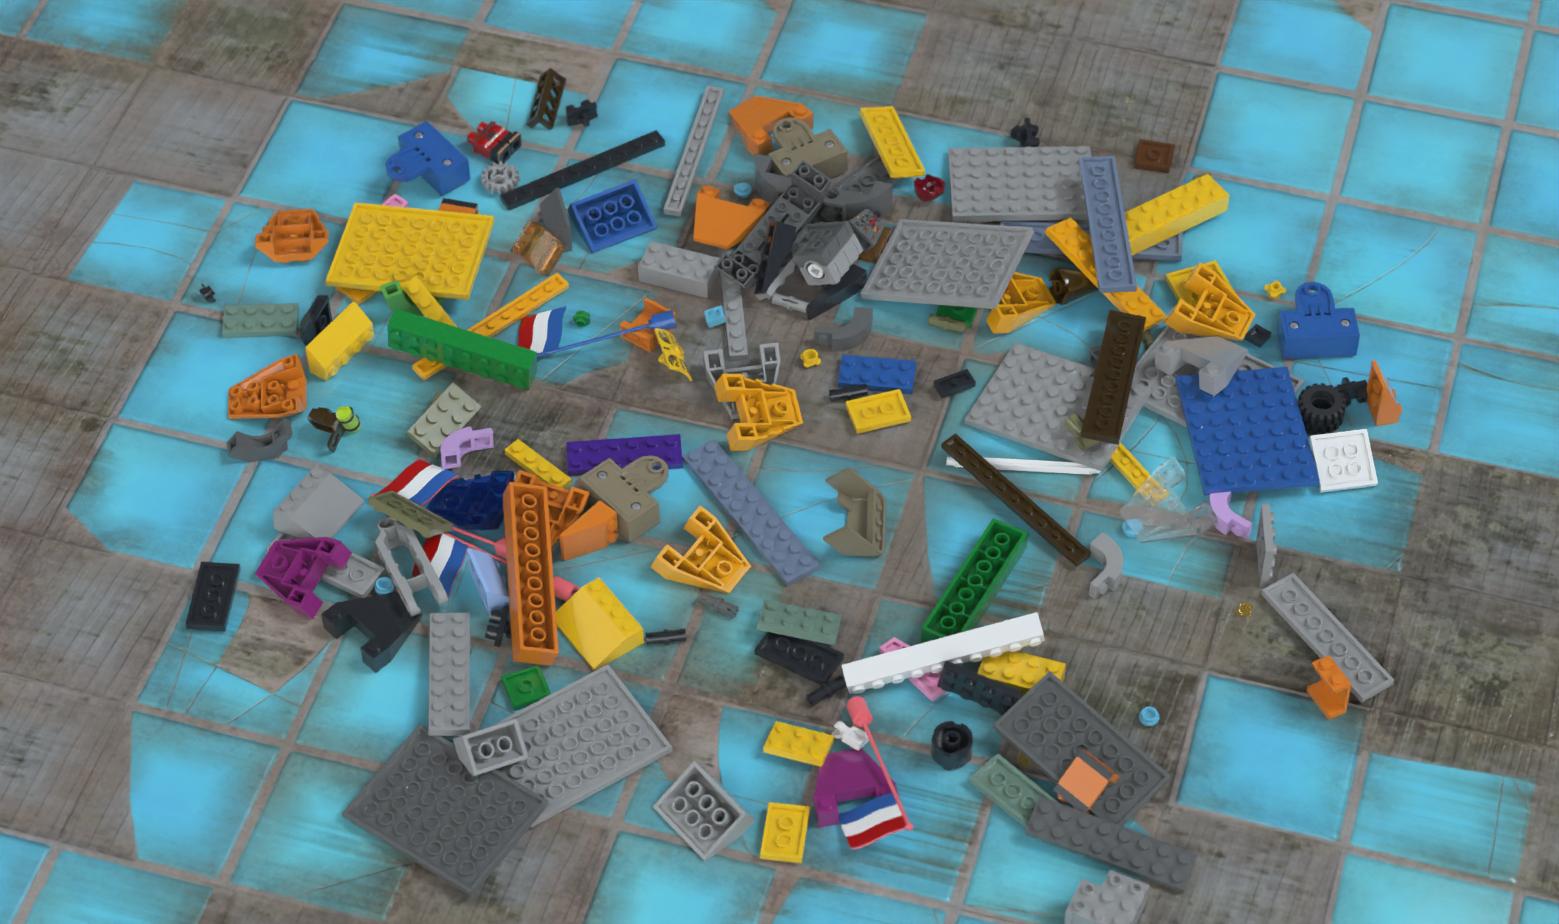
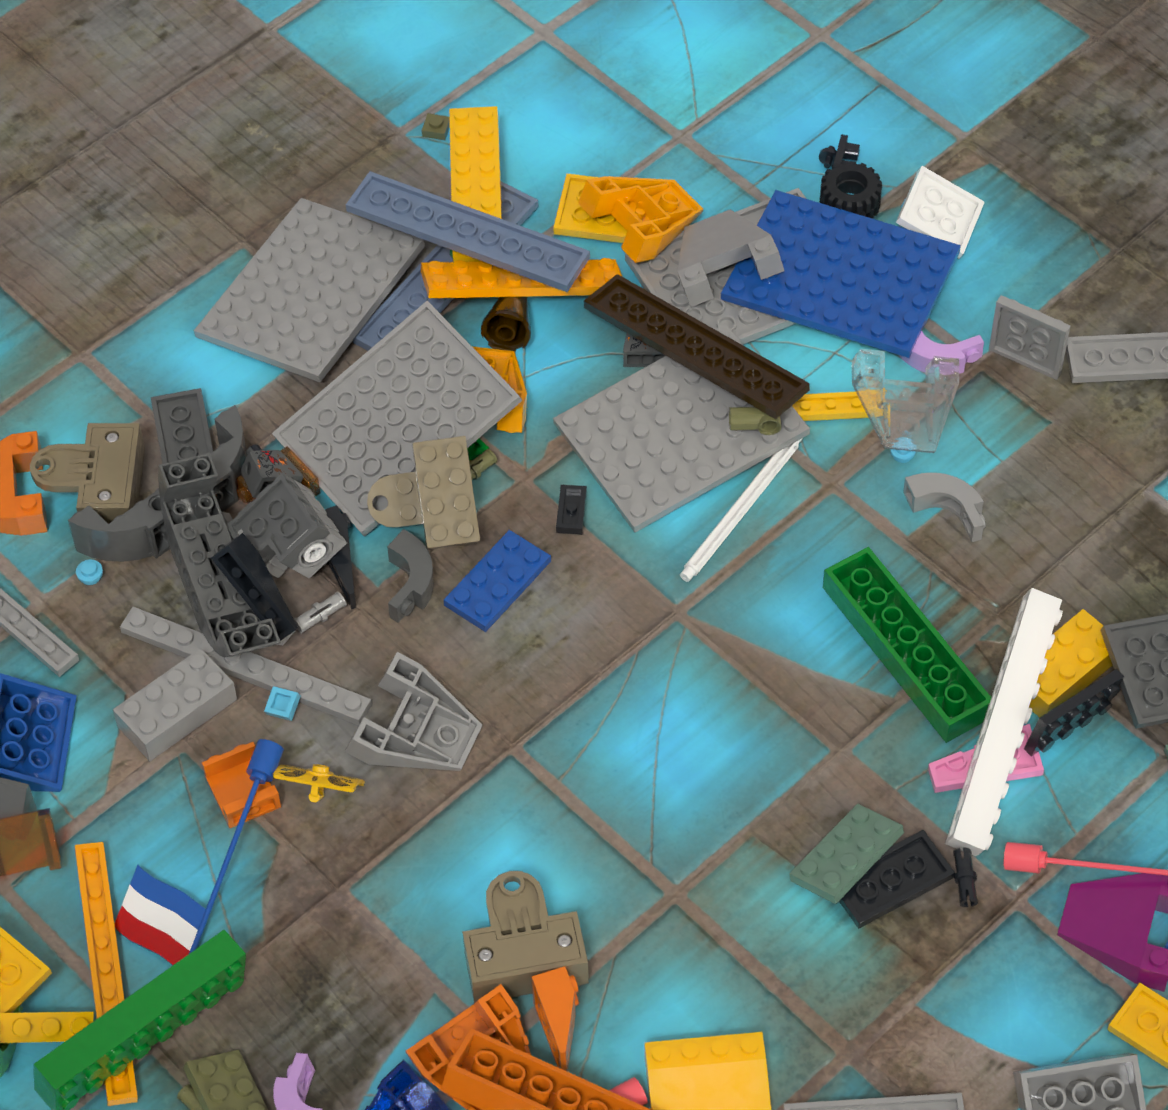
camera: 60 degrees left, 5 degrees up
(536, 464) = (386, 1030): yellow plate -> none
(581, 318) = (172, 856): green plate -> none
(586, 455) = (437, 920): dark purple plate -> none
(666, 636) = (773, 1013): black pin -> none
(712, 560) = (678, 903): light orange wedge -> none
(718, 604) = (757, 930): dark grey pin -> none
(725, 222) = (139, 617): orange wedge -> none
(751, 512) = (626, 822): sand blue plate -> none
(762, 410) = (481, 725): light orange wedge -> none
(798, 744) = (1032, 948): yellow plate -> none
(810, 358) = (420, 630): yellow plate -> none
(848, 392) = (509, 623): black pin -> none
(851, 736) = (1055, 882): white plate -> none
(865, 516) = (723, 707): dark tan windscreen -> none
(878, 411) = (561, 607): yellow plate -> none
(892, 142) = (144, 377): yellow plate -> none
(902, 307) = (433, 495): none -> dark tan brick
(929, 188) = (248, 379): dark red hair -> none
(951, 745) = (1131, 784): black brick -> none
(1016, 500) = (796, 537): dark brown plate -> none
(1026, 134) = (234, 246): black hips -> none
(1154, 156) = (359, 149): reddish brown tile -> none
(1245, 609) = (1084, 408): clear yellow piece -> none
(1258, 335) = (703, 193): black plate -> none
(1275, 290) = (644, 147): yellow plate -> none
(1316, 326) = (739, 133): blue brick -> none
(1381, 397) = (877, 131): orange slope -> none

